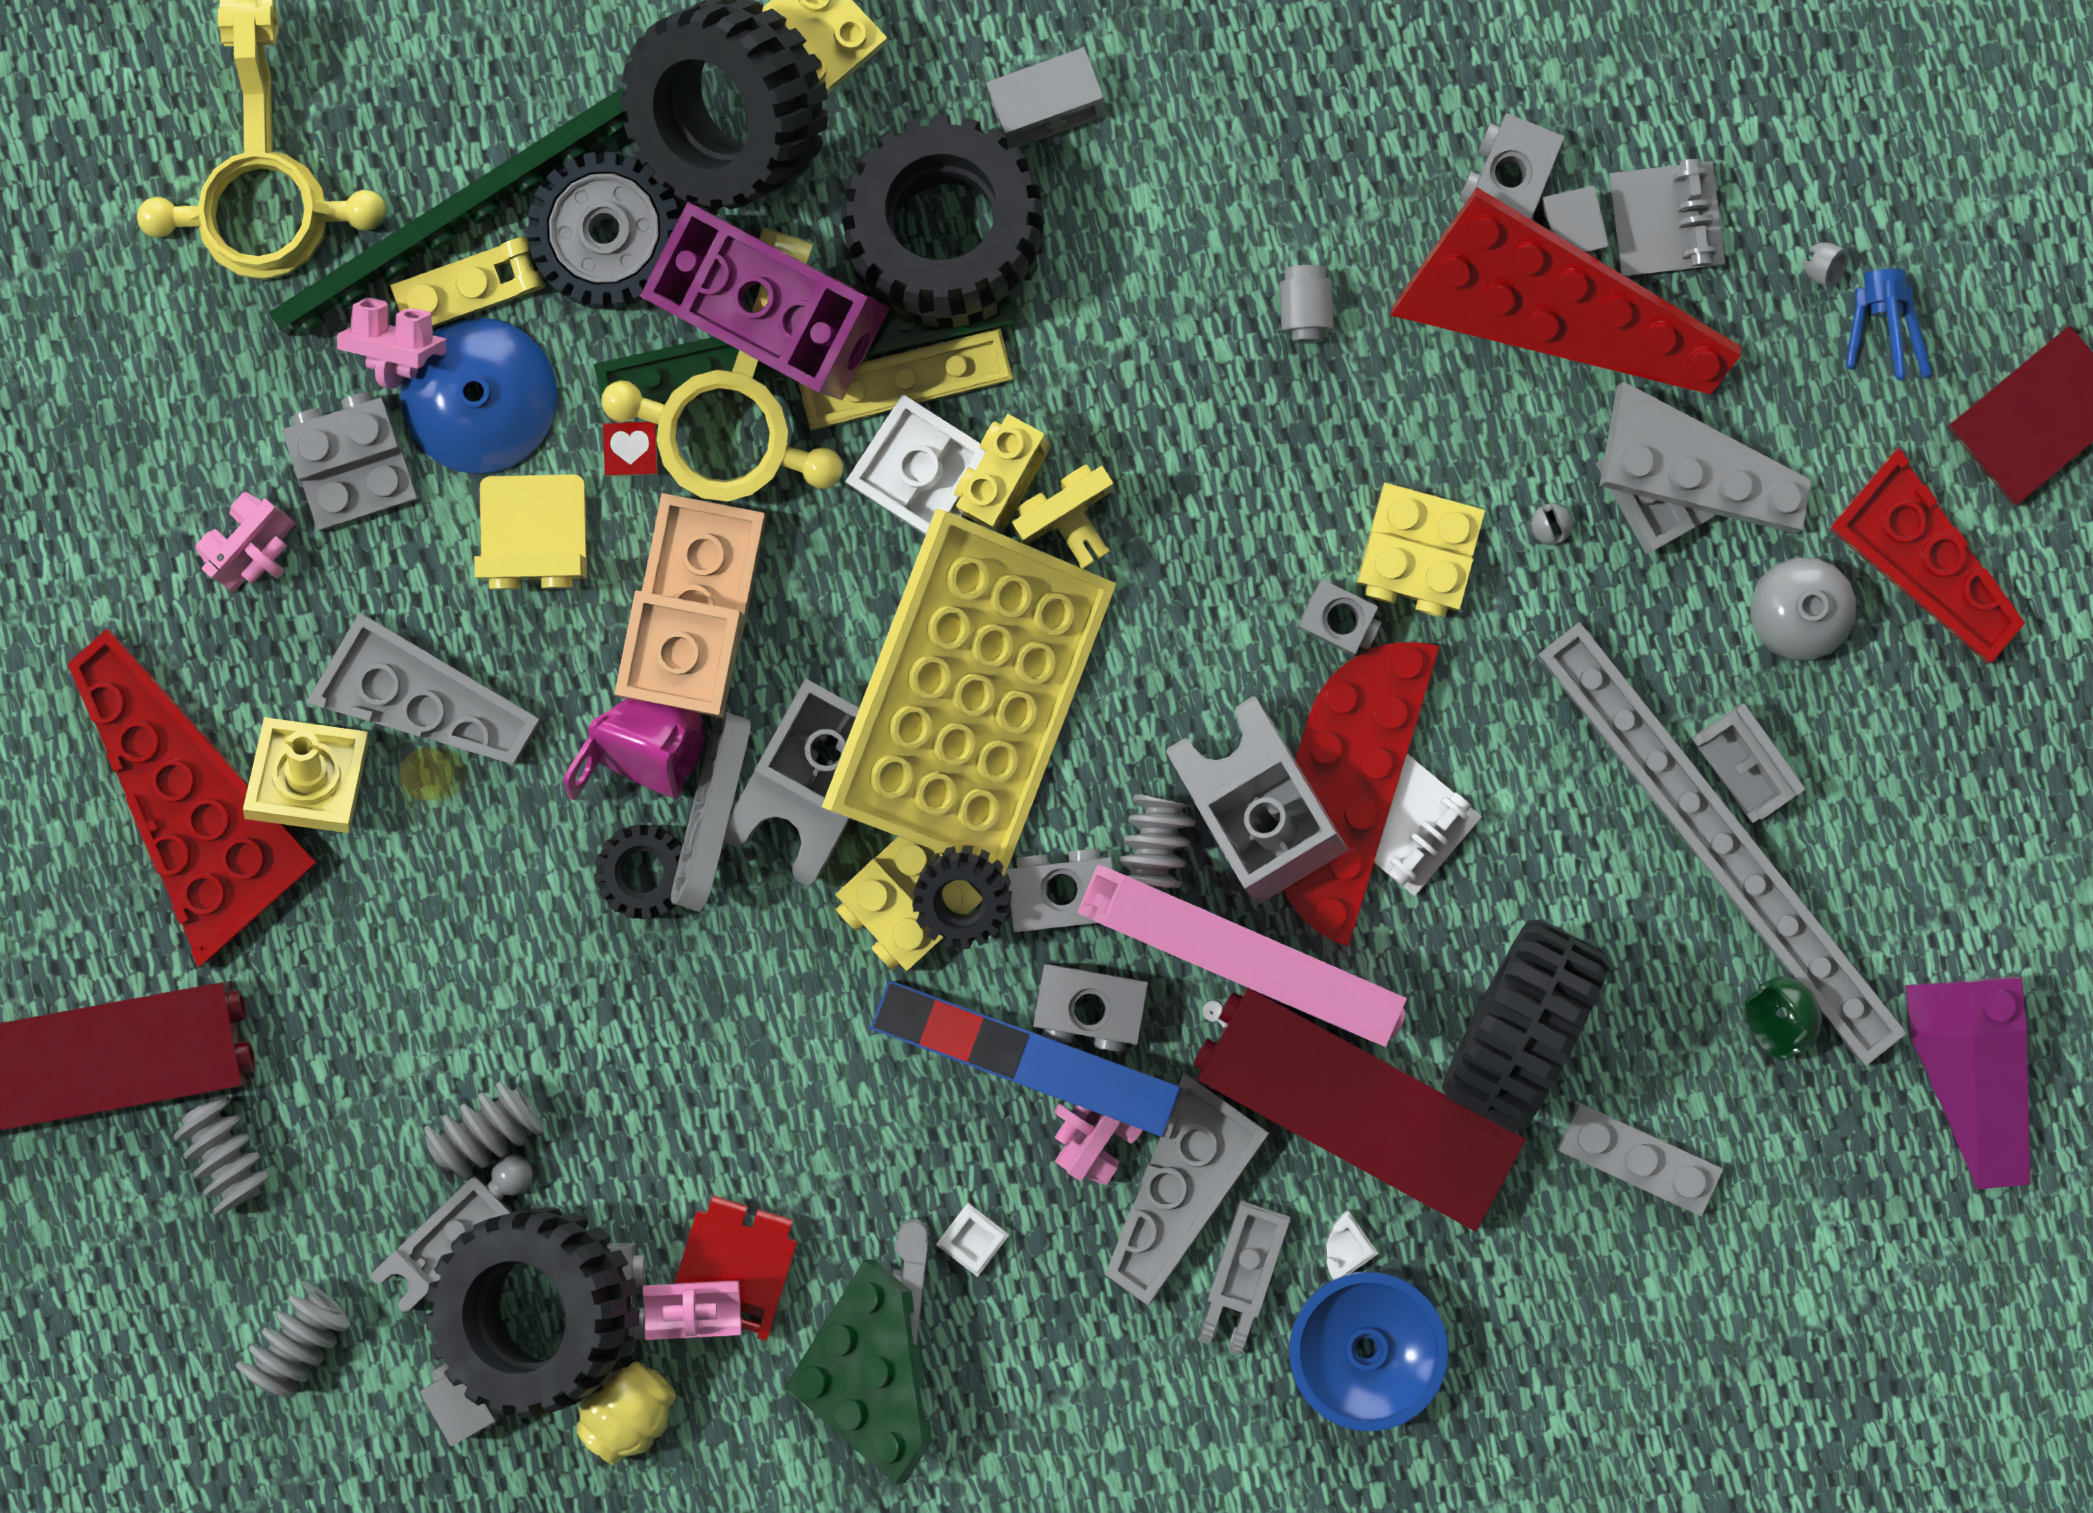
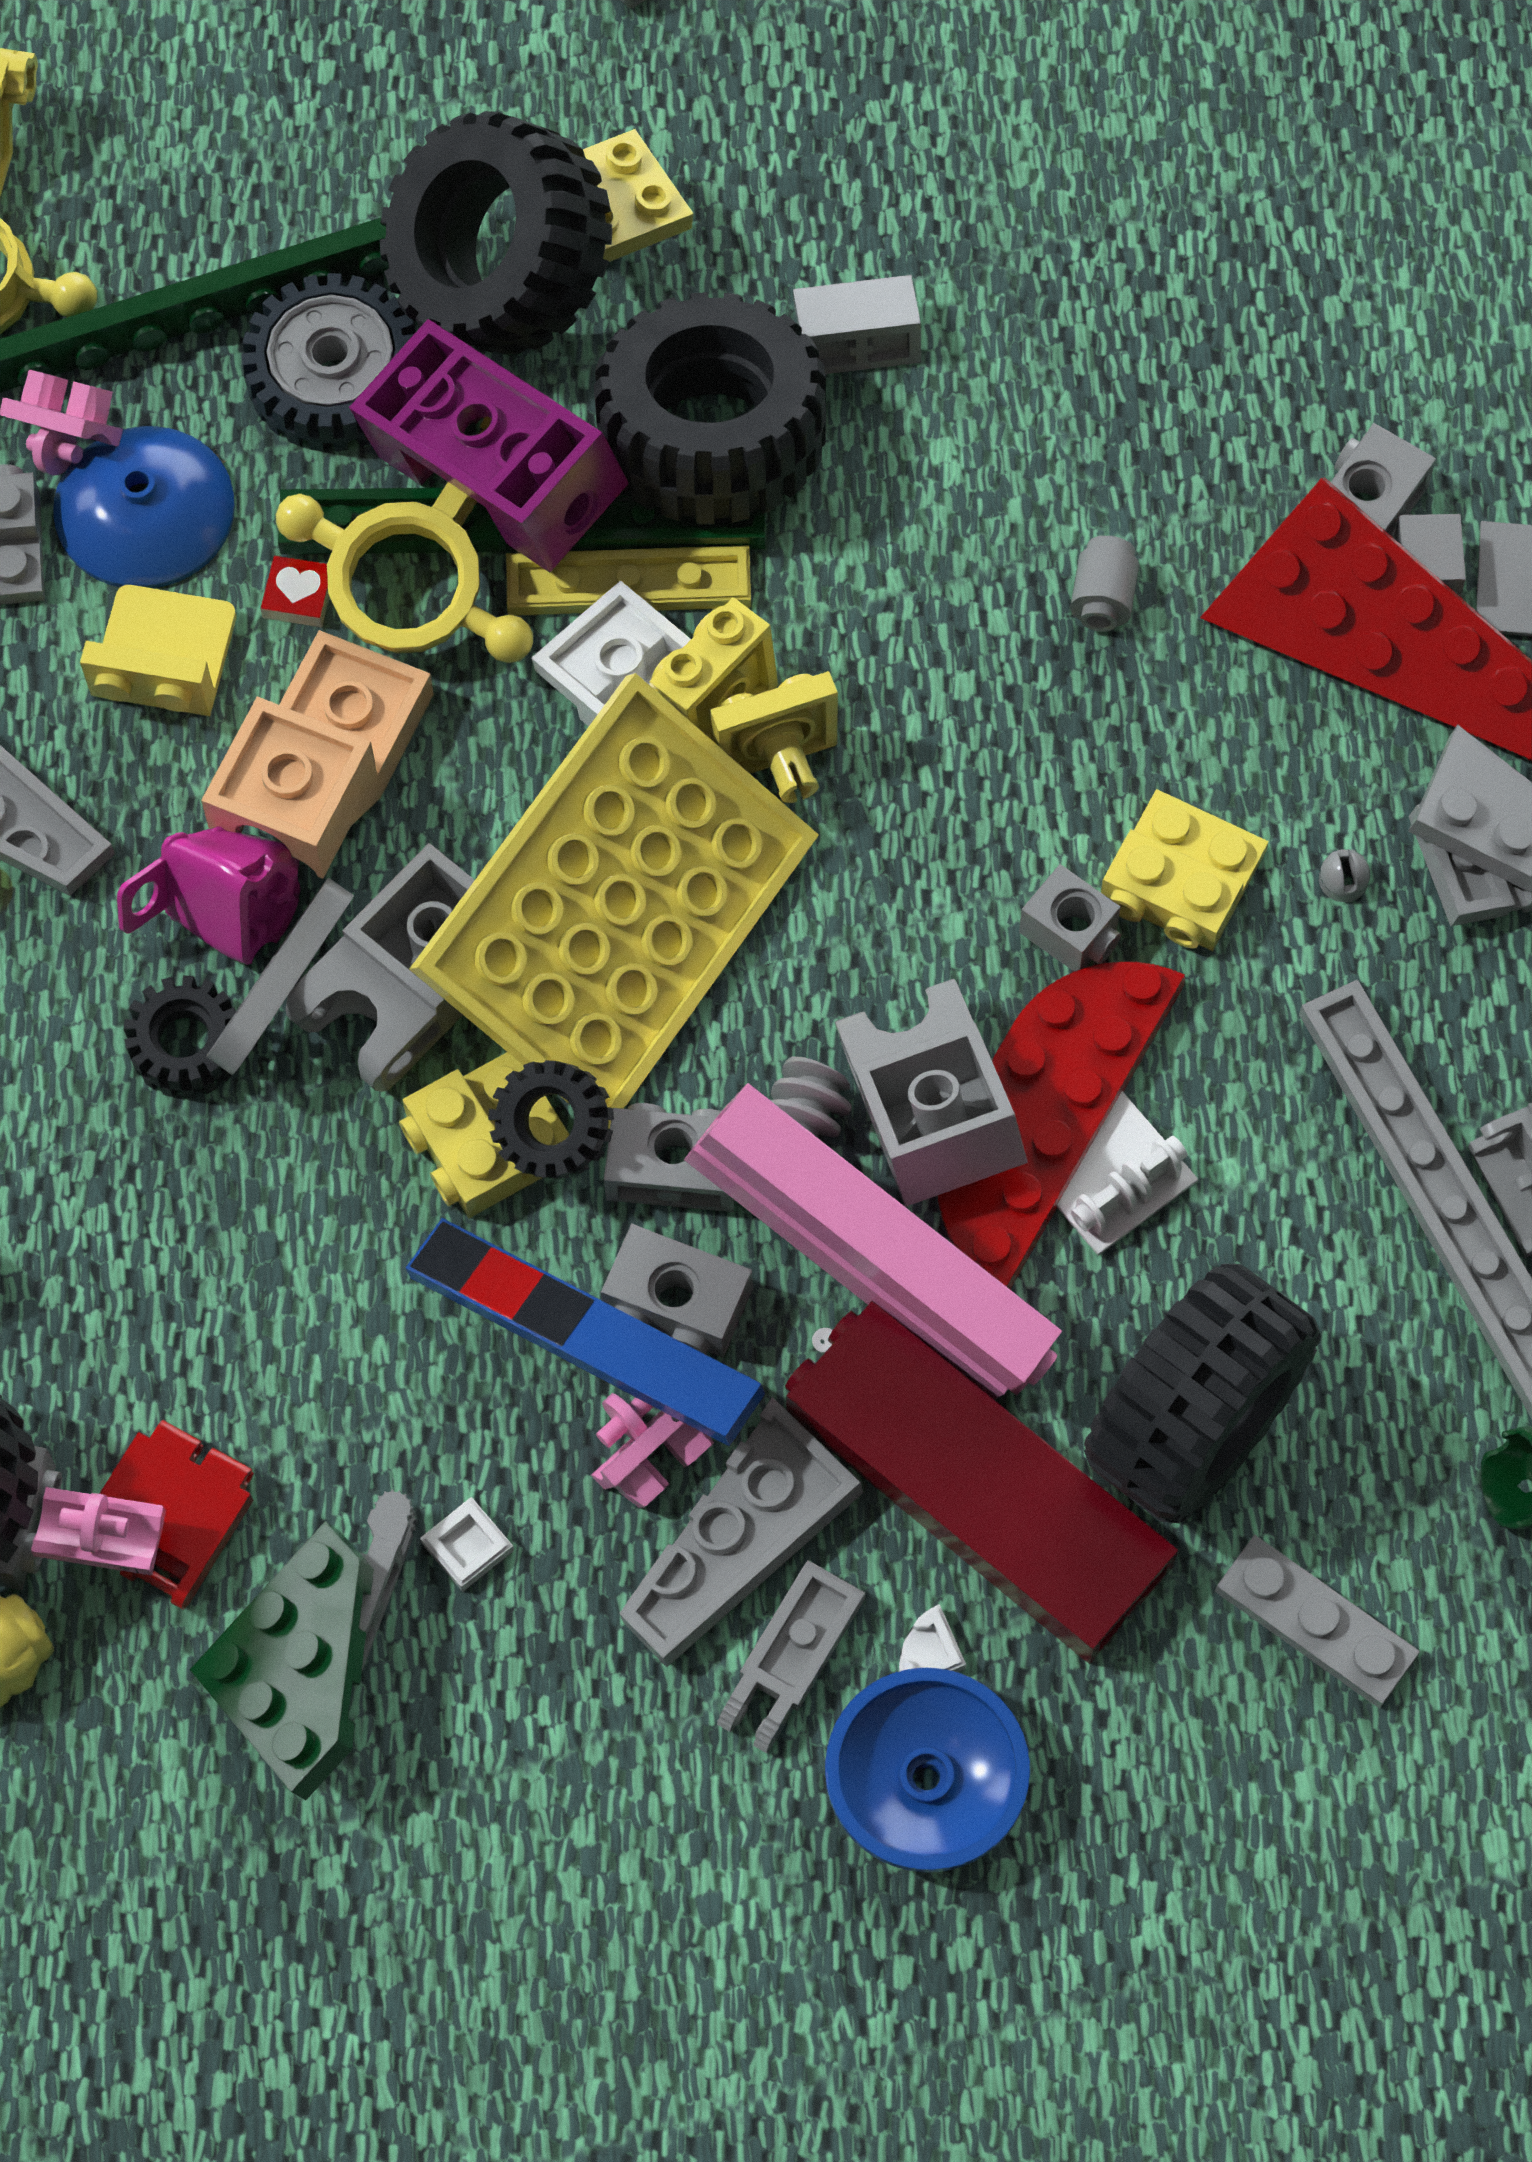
camera: 10 degrees right, 20 degrees down
(470, 283) = (173, 390): light yellow plate -> none

